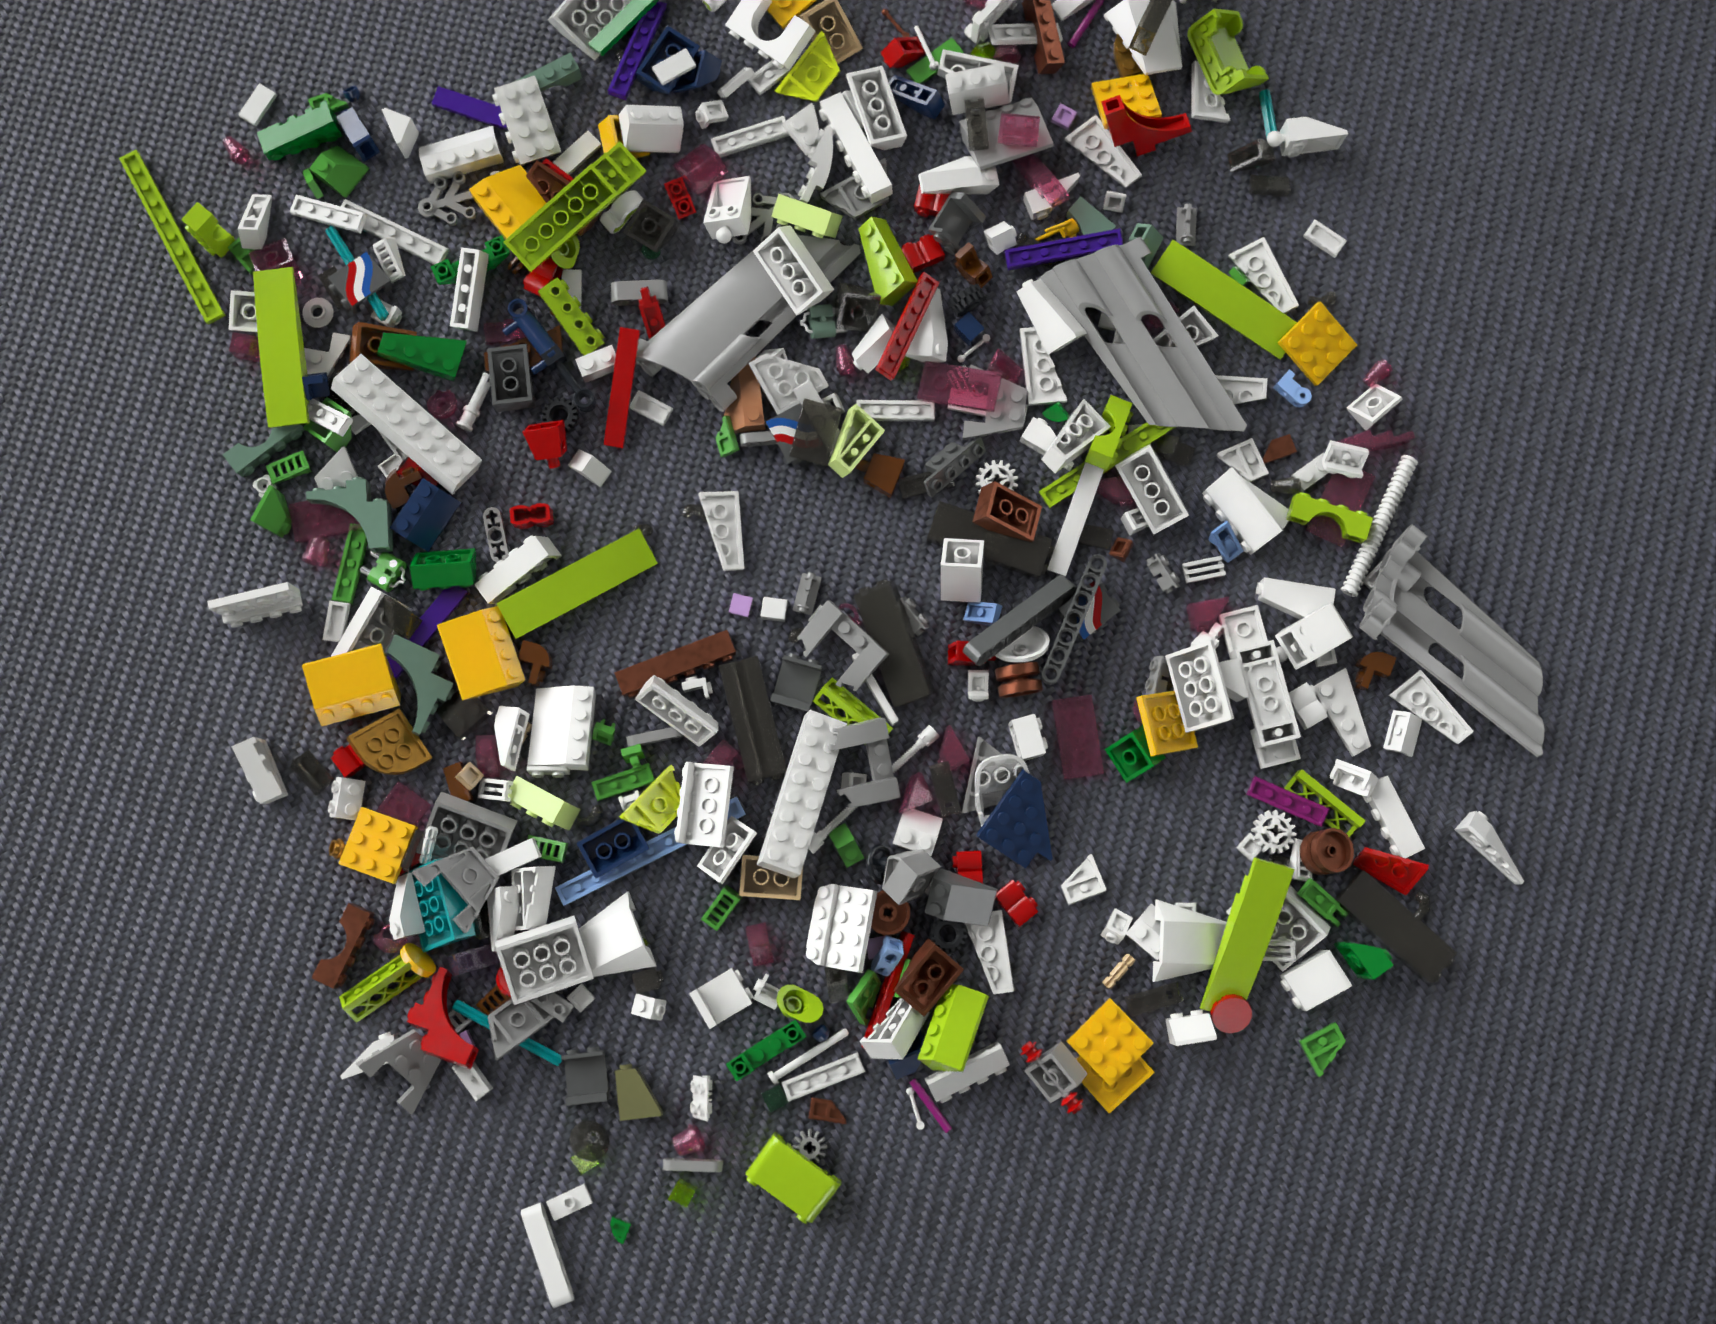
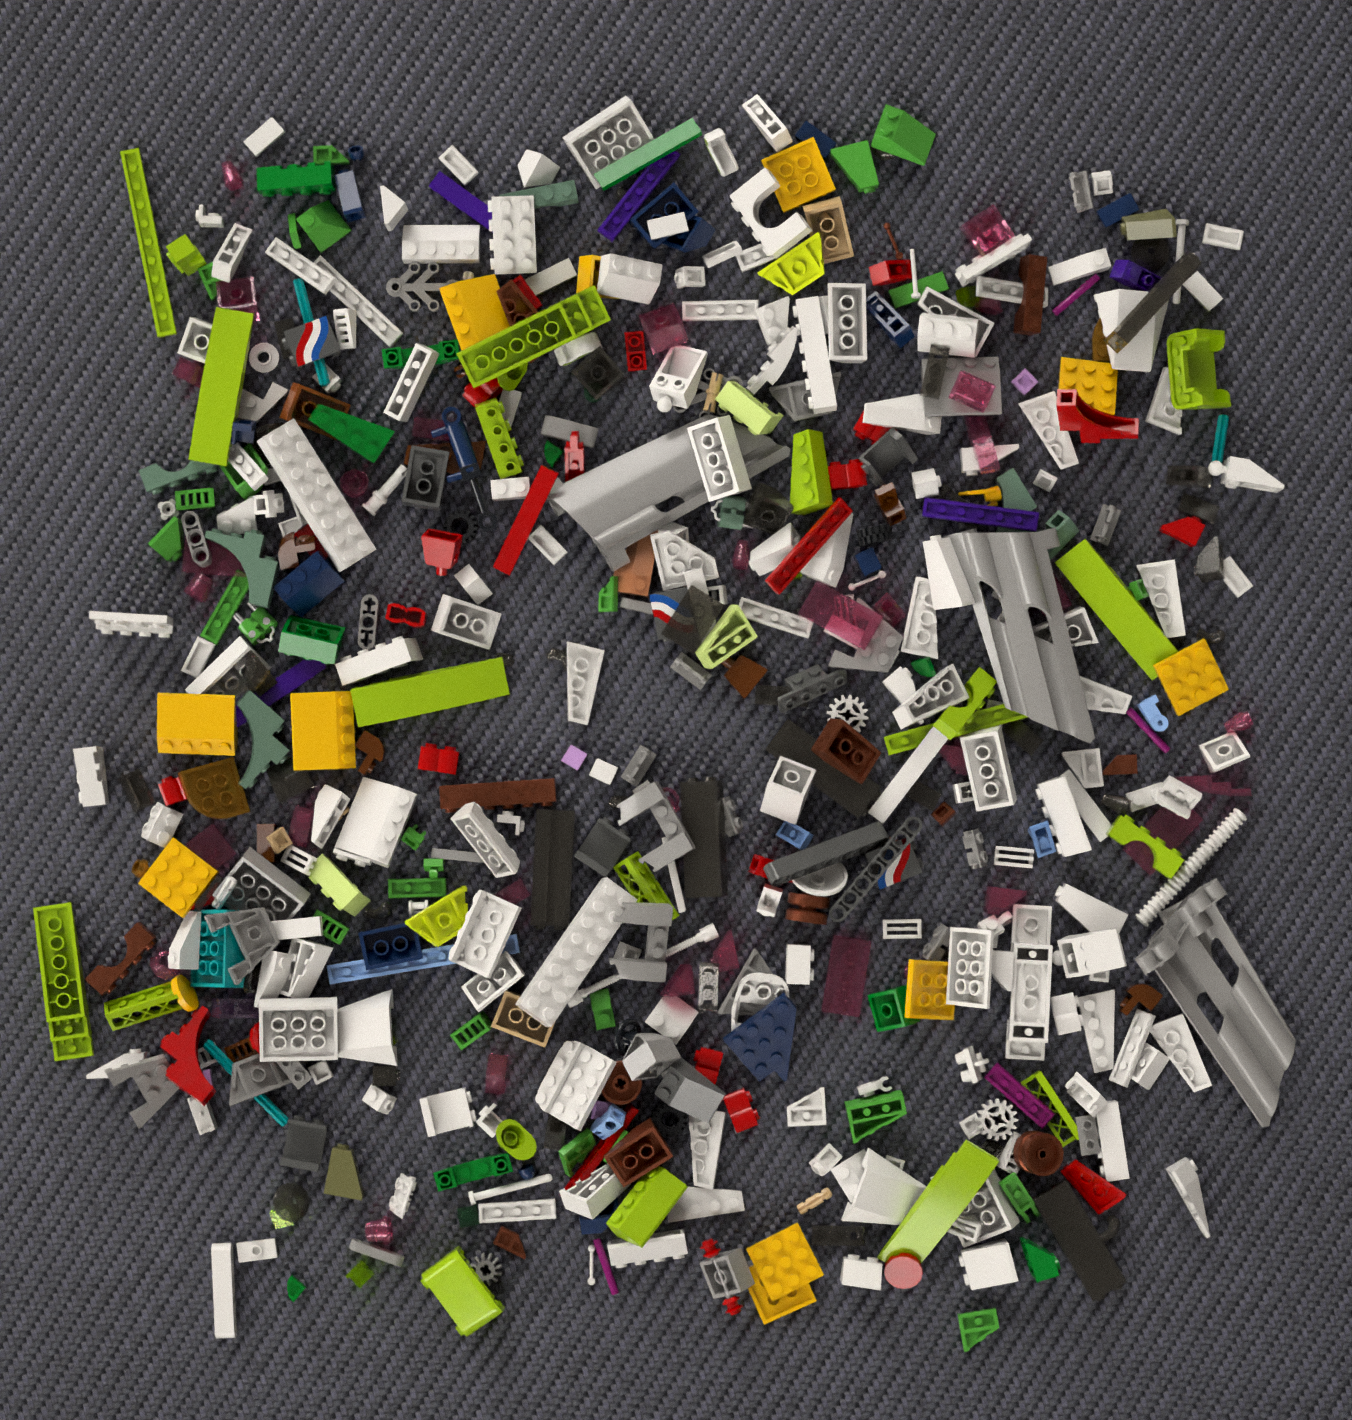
camera: 25 degrees right, 5 degrees up
(227, 197) = (212, 220): none -> white bracket
(291, 989) = (63, 982): none -> lime slope
(294, 498) = (192, 531): none -> light grey beam
(362, 449) = (268, 504): none -> white brick
(455, 76) = (458, 165): none -> white tile
(532, 55) = (536, 169): none -> white slope
(593, 505) = (466, 622): none -> white slope
(606, 648) = (438, 760): none -> red brick
(628, 318) = (552, 453): none -> green tile
(766, 213) = (712, 392): none -> tan pin
(829, 486) = (691, 670): none -> light grey hinge
(1011, 1007) = (706, 1202): none -> white wing
(1101, 678) = (909, 936): none -> white tile
(1137, 840) = (868, 1088): none -> white plate
(1150, 863) = (873, 1112): none -> bright green wedge
(1235, 793) = (974, 1062): none -> white hips
(1263, 208) = (1184, 530): none -> red slope
(1292, 408) = (1148, 730): none -> magenta bar
(1299, 229) = (1210, 562): none -> clear smoke slope
(1369, 818) = (1087, 1135): none -> light grey hinge
(1382, 719) = (1132, 1048): none -> white tile

